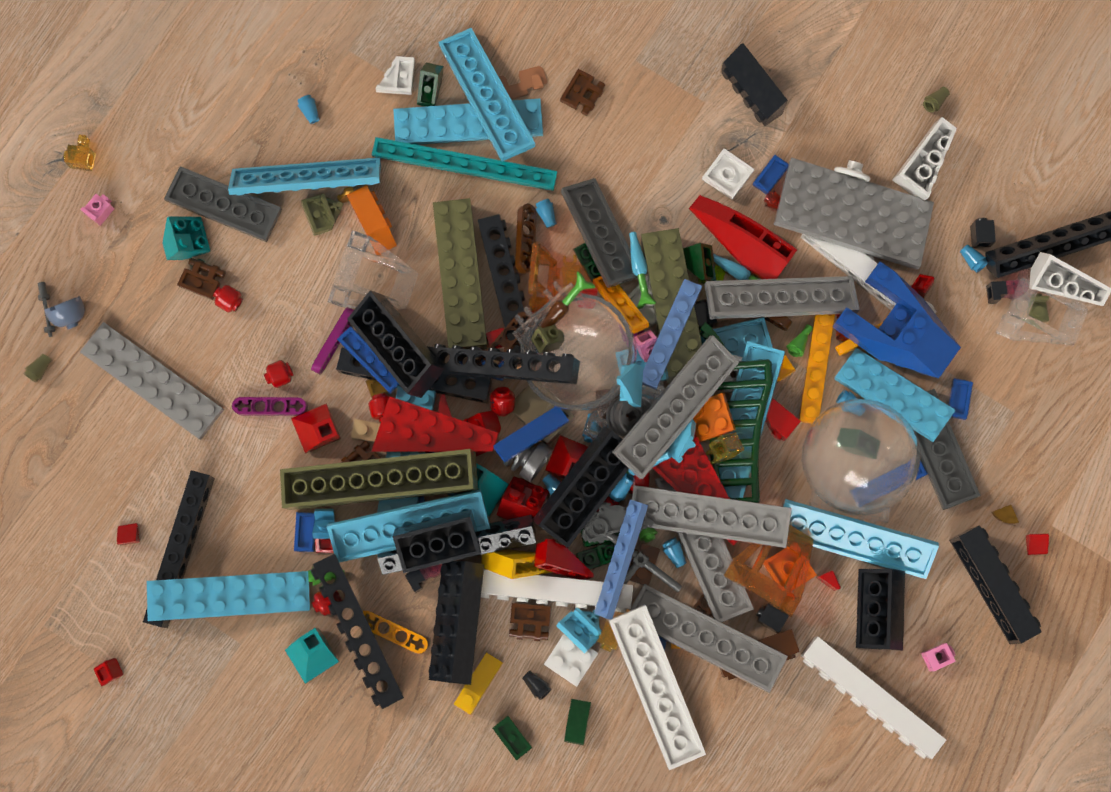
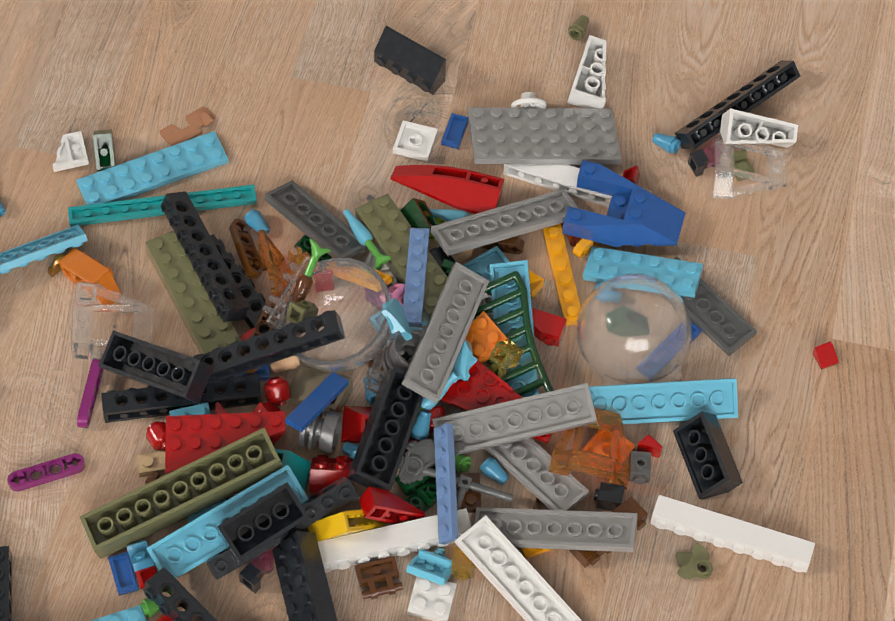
camera: 25 degrees left, 20 degrees down
(278, 373) = (45, 438): red head -> none
(316, 428) = (102, 475): red slope -> none
(321, 213) = (36, 289): olive slope -> none
(366, 357) = (134, 393): blue tile -> none
(375, 387) = (144, 421): pearl gold tile -> none
(484, 230) = (204, 256): none -> black brick
(486, 94) = (163, 139): medium azure plate -> none
(578, 88) = (247, 111): reddish brown plate -> none
(772, 200) = (465, 150): clear red cone -> none
(798, 344) = (537, 261): bright green cone -> none
(812, 598) = (640, 467): none -> dark grey brick
(824, 709) = (692, 562): none -> olive plate
(947, 657) = (771, 478): bright pink brick -> none
(960, 397) = (703, 254): blue tile -> none
(982, 233) = (666, 119): black brick -> none
(995, 585) = (802, 397): black brick -> none
(1006, 515) = (787, 341): pearl gold tile -> none

